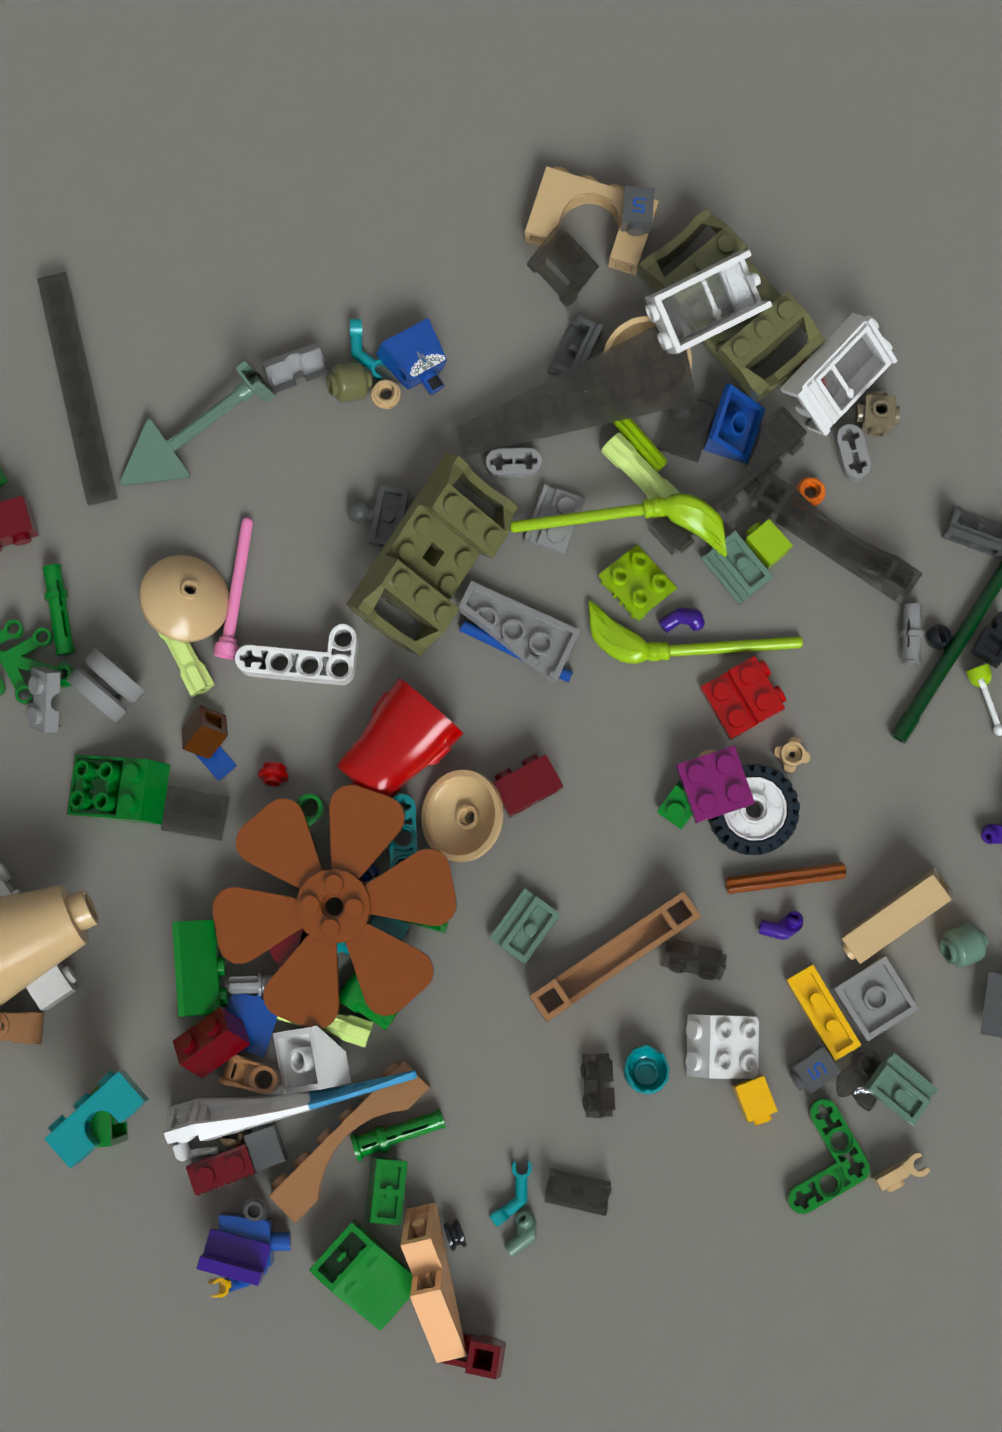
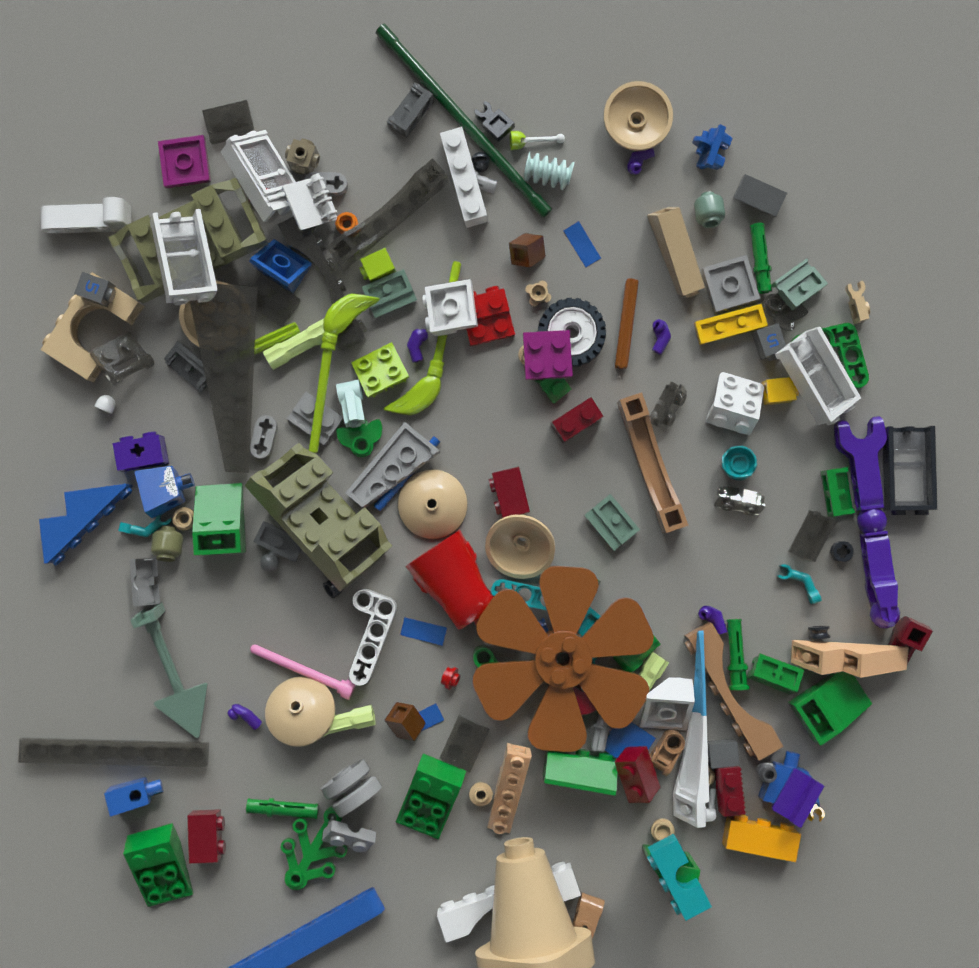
camera: 75 degrees left, 5 degrees up
(24, 414) = (122, 798): none -> blue torso
(145, 856) = (480, 786): none -> tan plate
(153, 882) = (509, 788): none -> light nougat slope
(155, 1095) = (661, 829): none -> tan plate
(163, 534) = (246, 714): none -> dark purple arm
(170, 1228) = (761, 837): none -> light orange brick
(323, 725) = (423, 631): none -> blue sticker
(344, 596) = (330, 589): none -> black hinge
(360, 272) = (83, 512): none -> blue slope
(395, 435) = (219, 519): none -> slope
(439, 1091) = (714, 616): none -> dark purple arm
(454, 336) = (126, 452): none -> dark purple brick
(486, 715) = (435, 521): none -> tan dish
(502, 262) = (106, 404): none -> white hinge
(524, 1235) = (830, 581): sand green arm -> none
(553, 578) = (366, 433): none -> green plate
(562, 1245) = (846, 557): none -> black bush
(593, 554) = (351, 398): none -> light aqua piece
(621, 1264) = (871, 520): none -> dark purple piece
(643, 845) = (577, 420): none -> dark red brick
(644, 1212) = (837, 492): none -> green hinge
(699, 1300) = (910, 470): none -> door
(732, 200) = (83, 218): none -> white beam
(740, 646) = (450, 307): none -> white plate
(787, 1144) = (819, 376): none -> white door
(821, 437) = (310, 202): none -> white hinge
(829, 274) = (184, 161): none -> magenta plate
(842, 725) = (527, 250): none -> reddish brown panel
(871, 794) = (582, 244): none -> blue sticker
(895, 313) = (228, 121): none -> clear smoke plate
(910, 620) = (464, 177): none -> white arch
(910, 1033) = (761, 264): none -> green pin
(950, 724) = (548, 171): none -> light aqua piece

